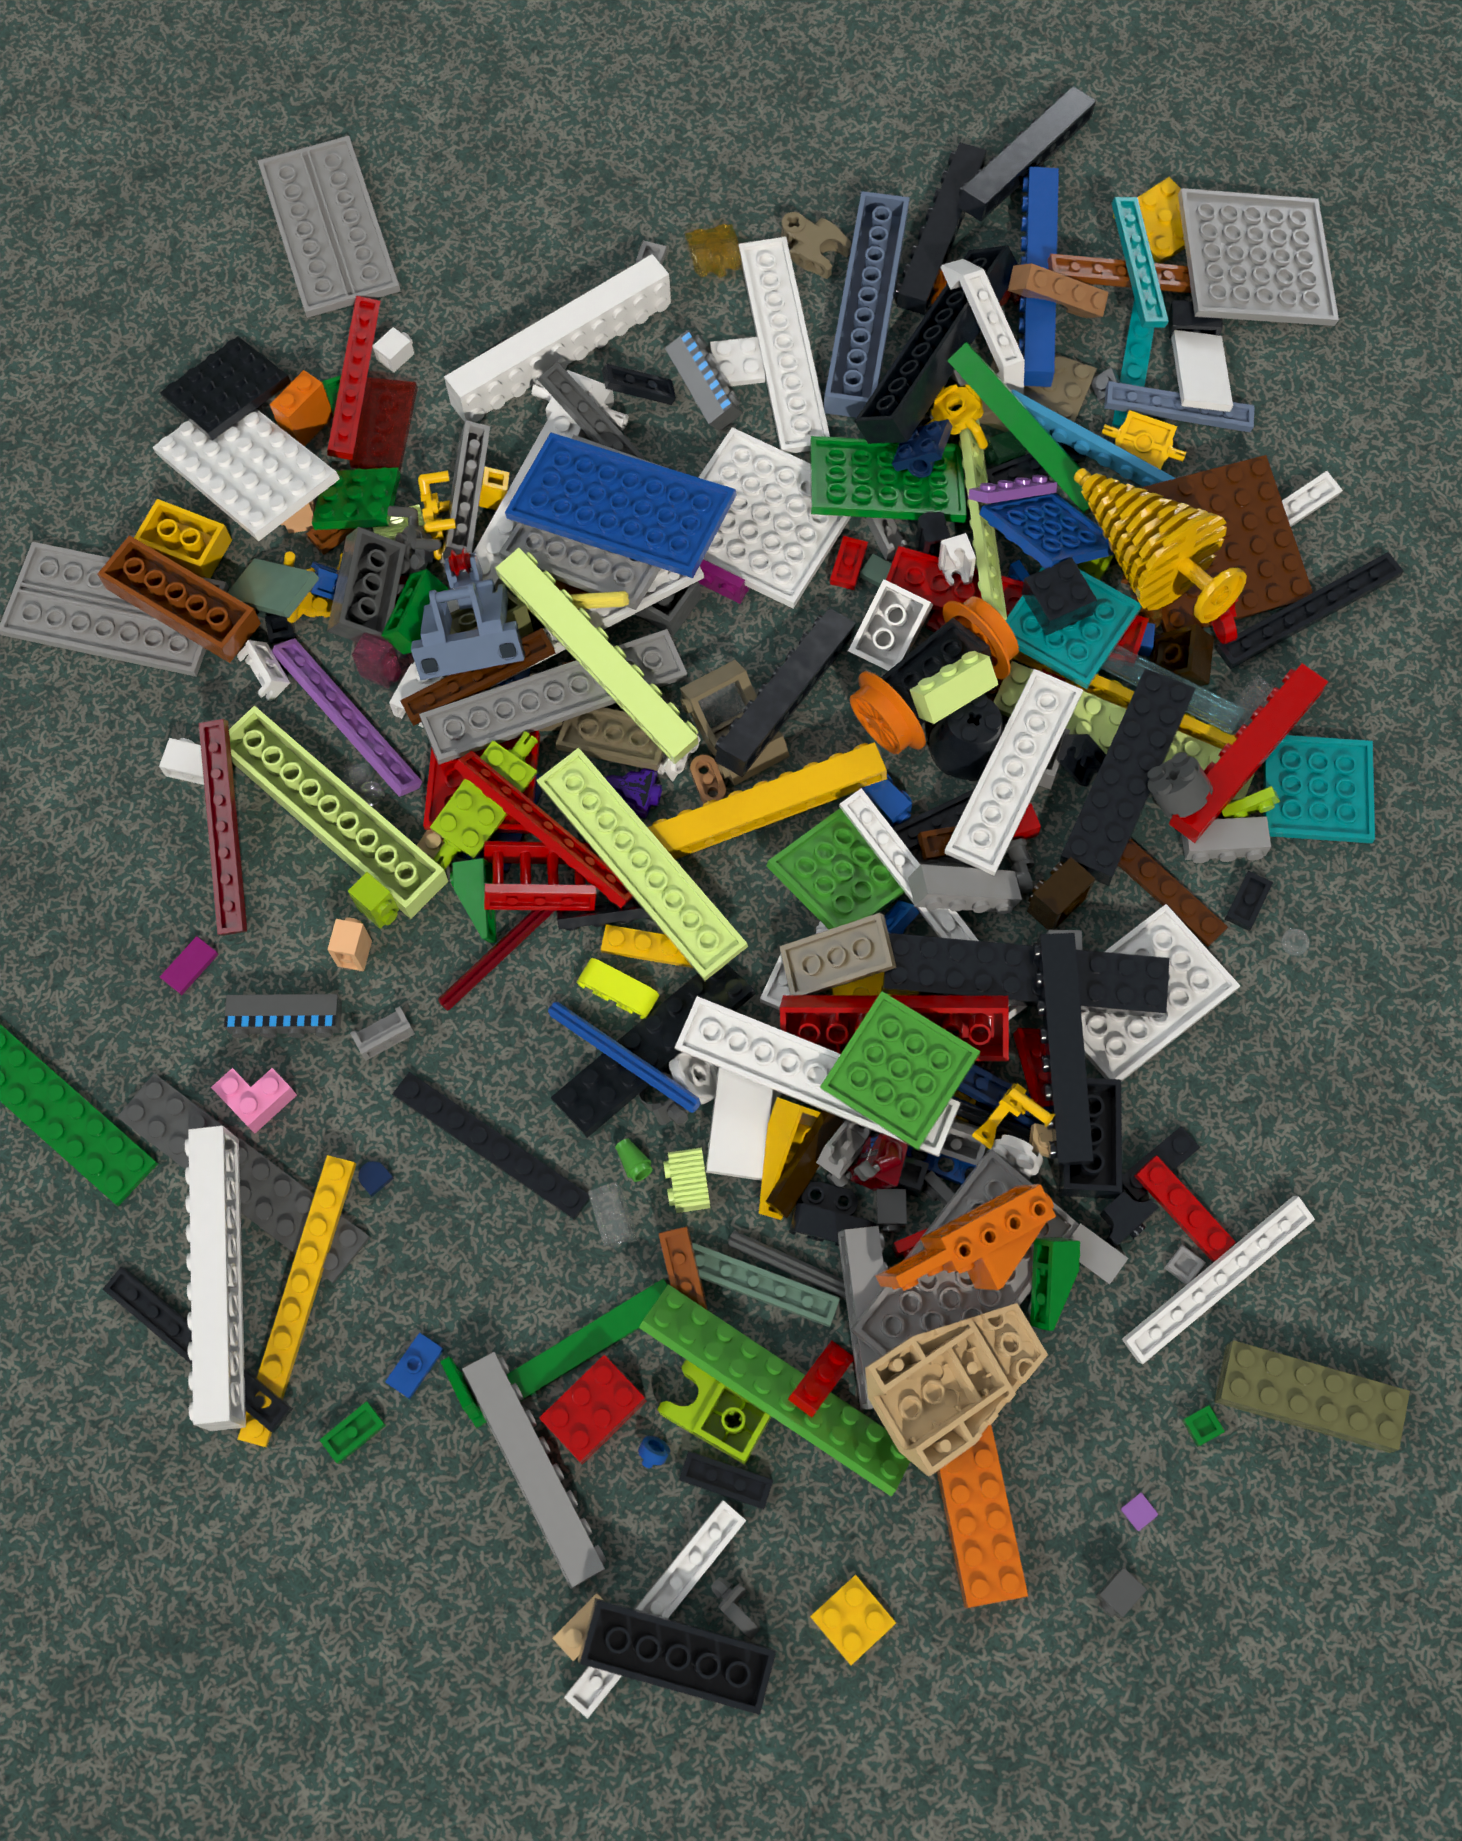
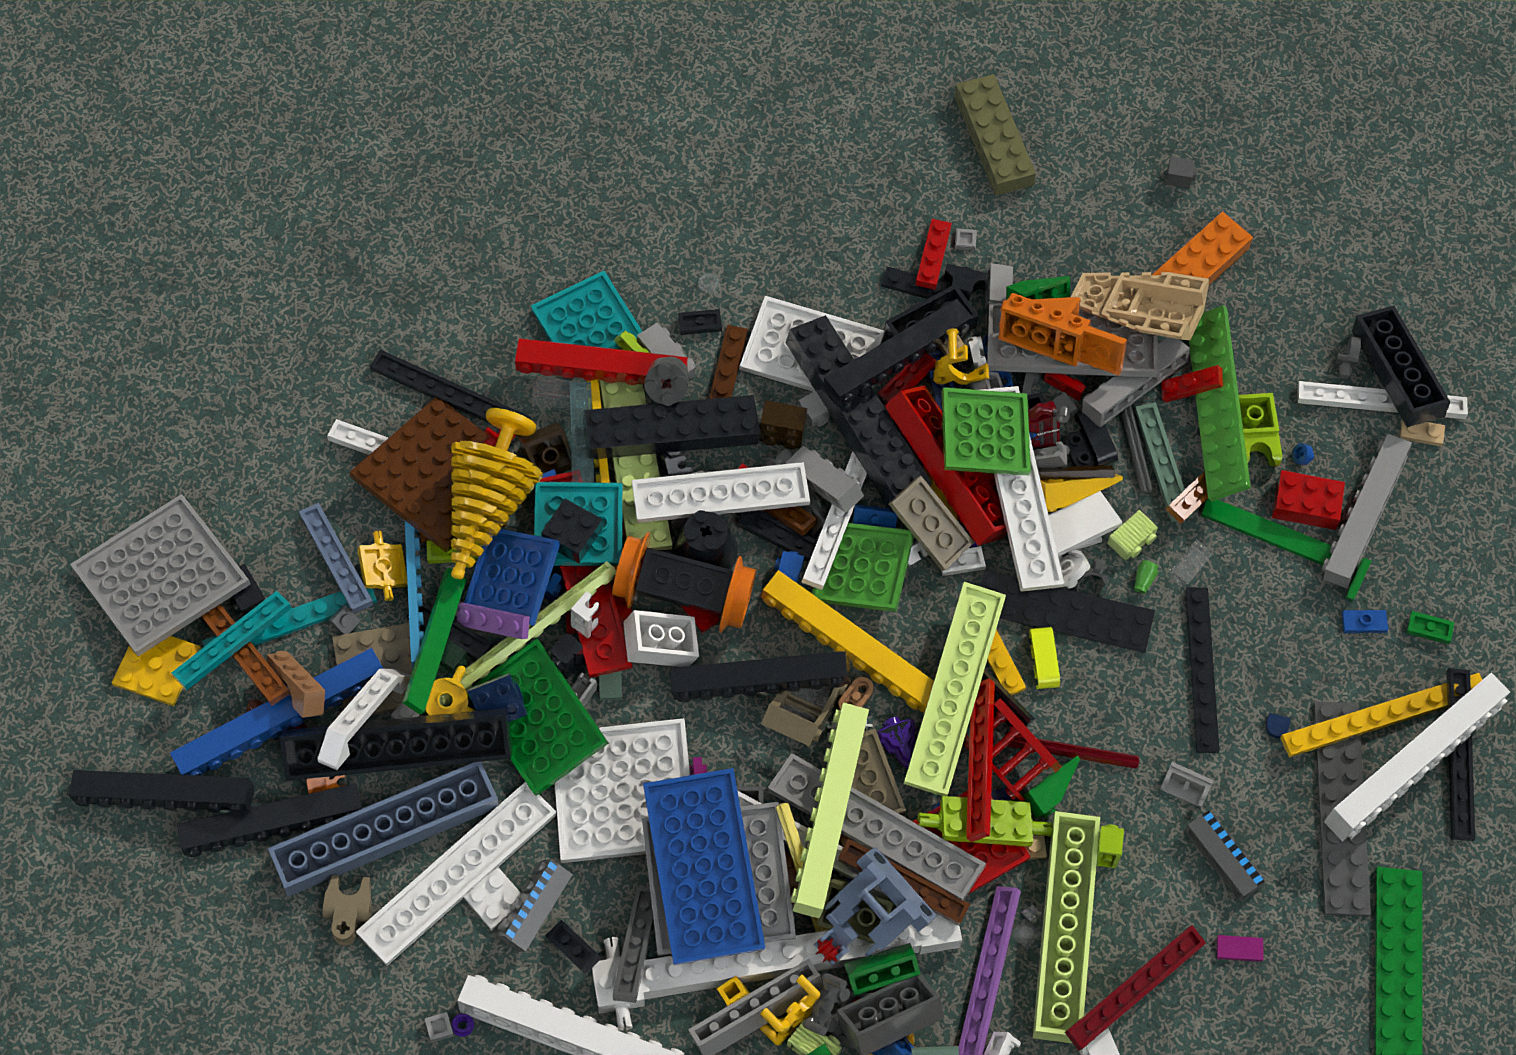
camera: 130 degrees left, 5 degrees down
(256, 1103) = (1295, 828): bright pink brick -> none
(349, 944) = (1149, 840): light nougat brick -> none
(376, 661) = (937, 972): clear pink brick -> none
(624, 1057) = (1090, 617): blue axle -> none
(714, 250) = (402, 981): clear yellow plate -> none
(726, 1480) = (1286, 407): black plate -> none
(848, 563) = (618, 709): red plate -> none
(853, 1620) = (1302, 298): yellow plate -> none
(953, 686) = (697, 549): yellowish green brick -> none
(1139, 1511) = (1125, 190): medium lavender piece -> none
(1201, 371) = (293, 558): white tile -> none
(1203, 1426) = (1053, 181): green plate -> none
(1218, 1279) = (961, 215): white plate -> none

